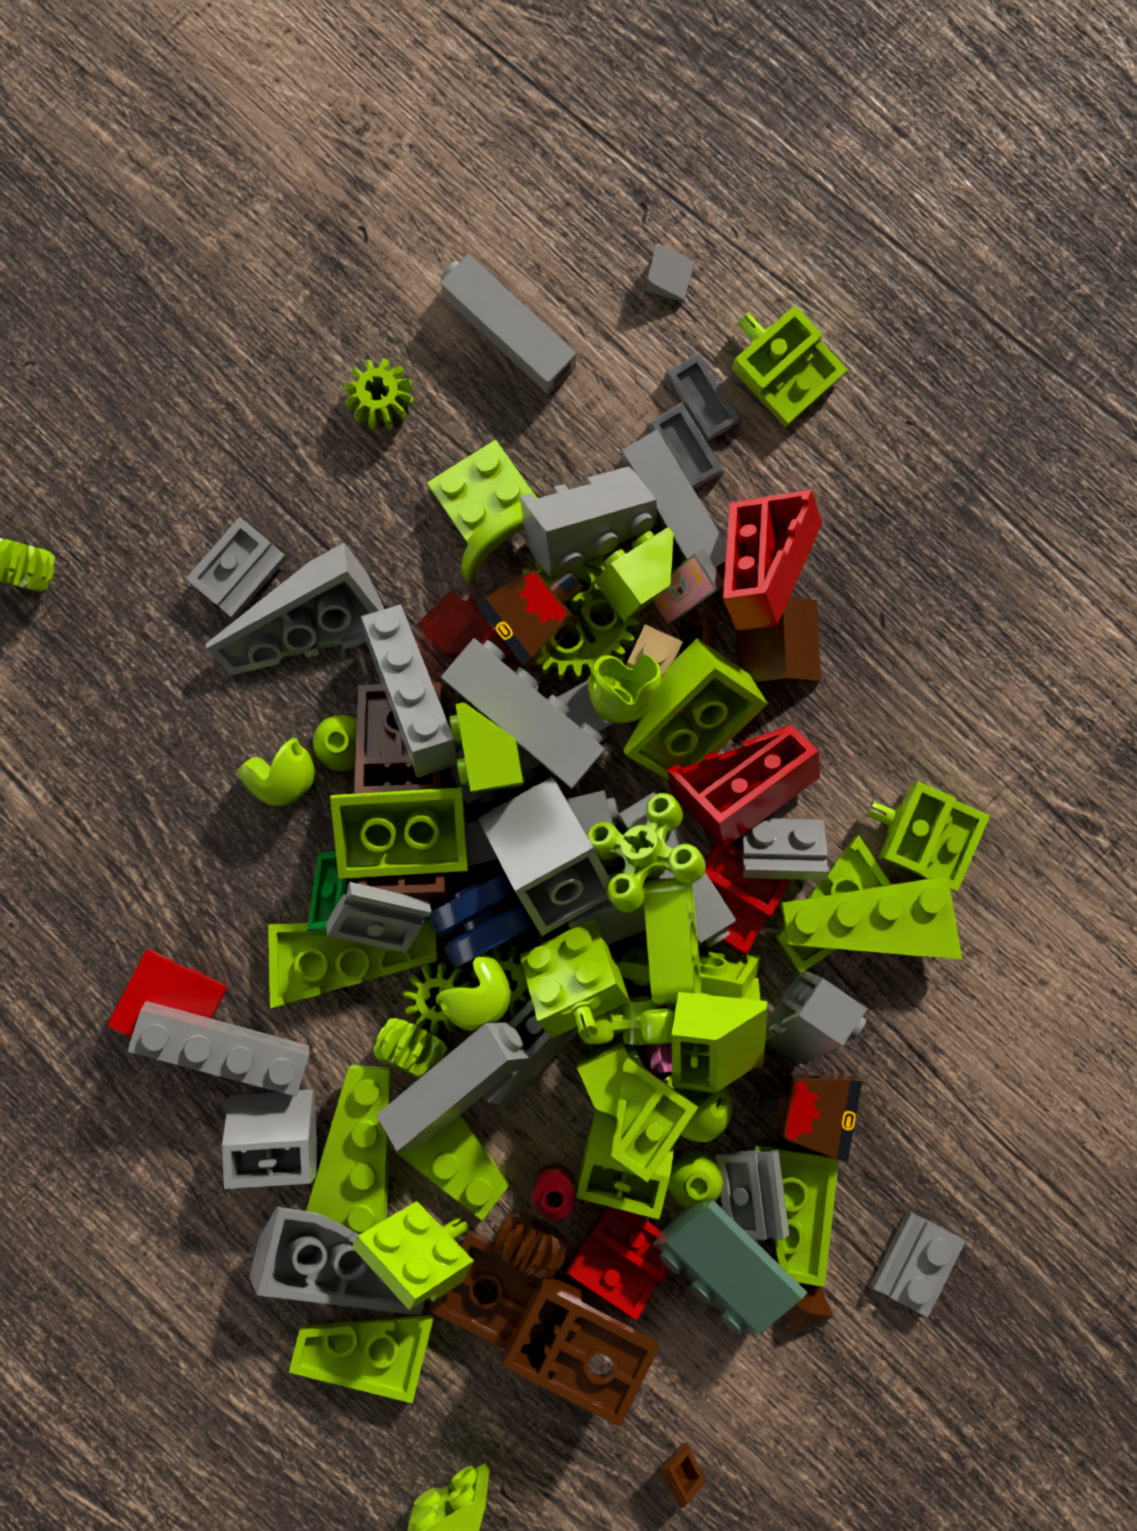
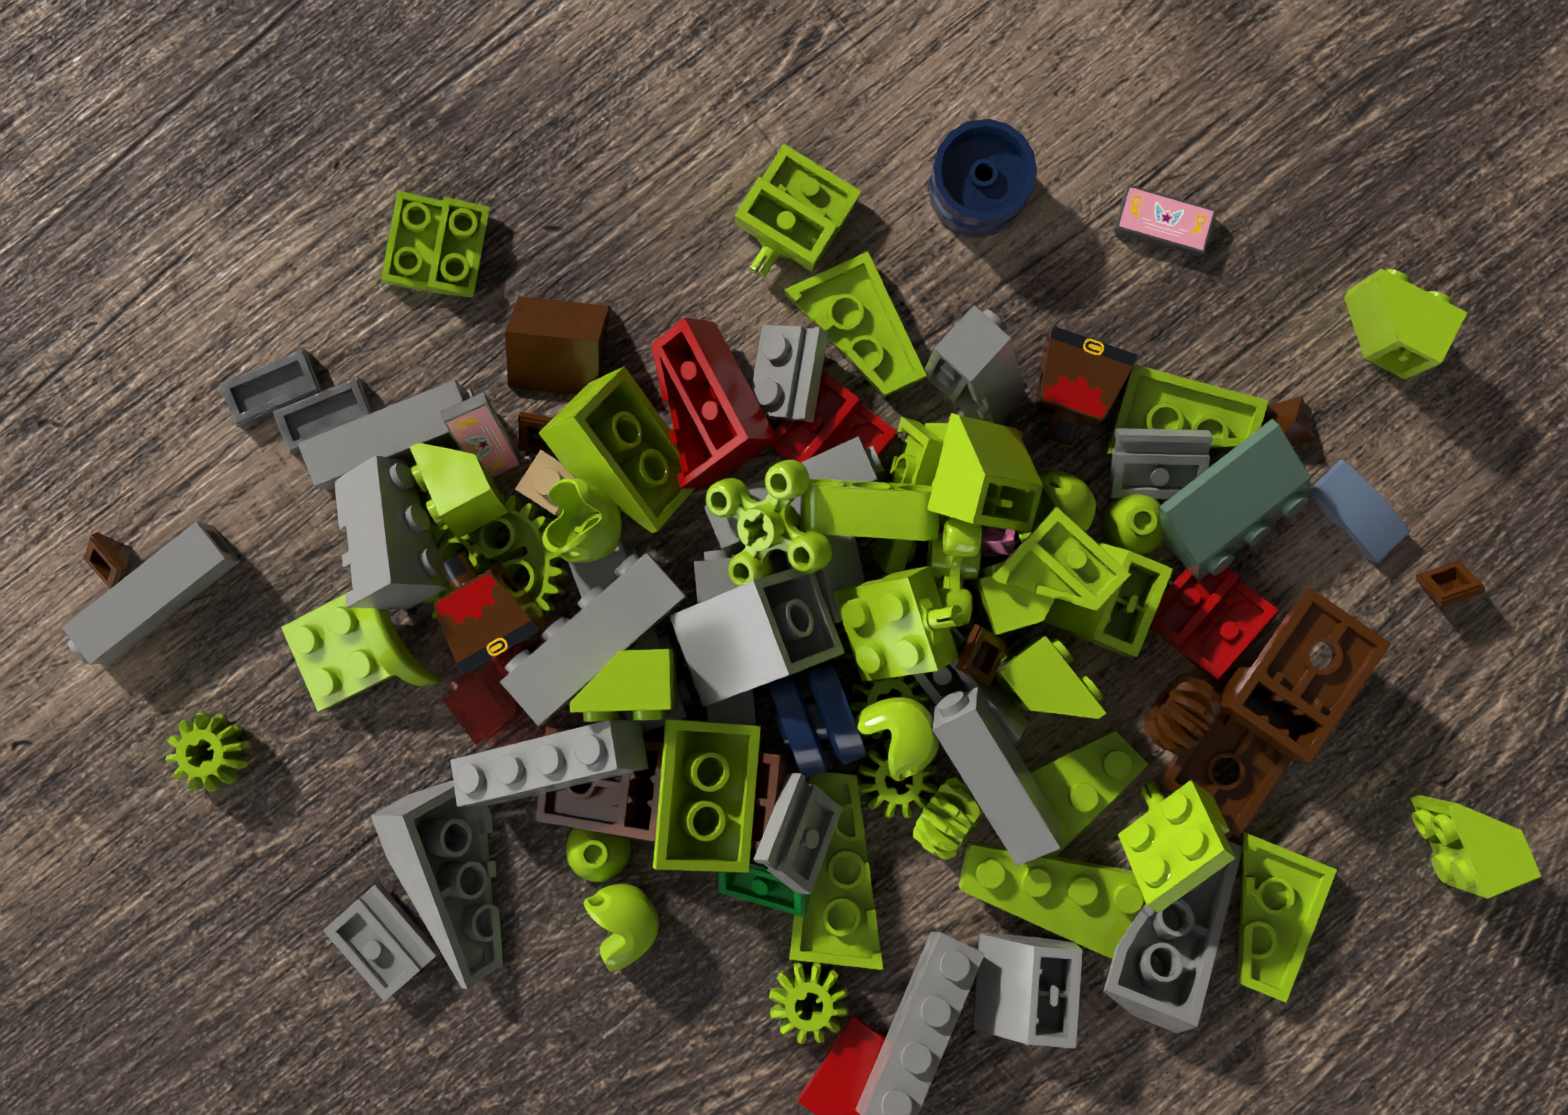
camera: 70 degrees left, 0 degrees up
(224, 957) = (820, 1014): none -> lime gear
(533, 282) = (107, 558): none -> reddish brown slope
(542, 1115) = (1042, 681): none -> lime slope
(557, 1057) = (980, 655): none -> reddish brown slope
(558, 1179) = (1114, 675): dark red head -> none
(669, 274) = (124, 405): light grey slope -> none
(737, 1383) = (1360, 510): none -> sand blue slope
(766, 555) = (456, 342): red wedge -> none
(787, 364) = (247, 289): lime plate -> none
(854, 520) = (435, 244): none -> lime slope
(890, 919) = (881, 270): lime wing -> none
(912, 1400) = (1401, 323): none -> lime slope
(917, 1263) = (1256, 297): light grey plate -> none
(974, 1169) = (1164, 220): none -> bright pink tile
(1011, 1001) = (985, 151): none -> dark blue wheel

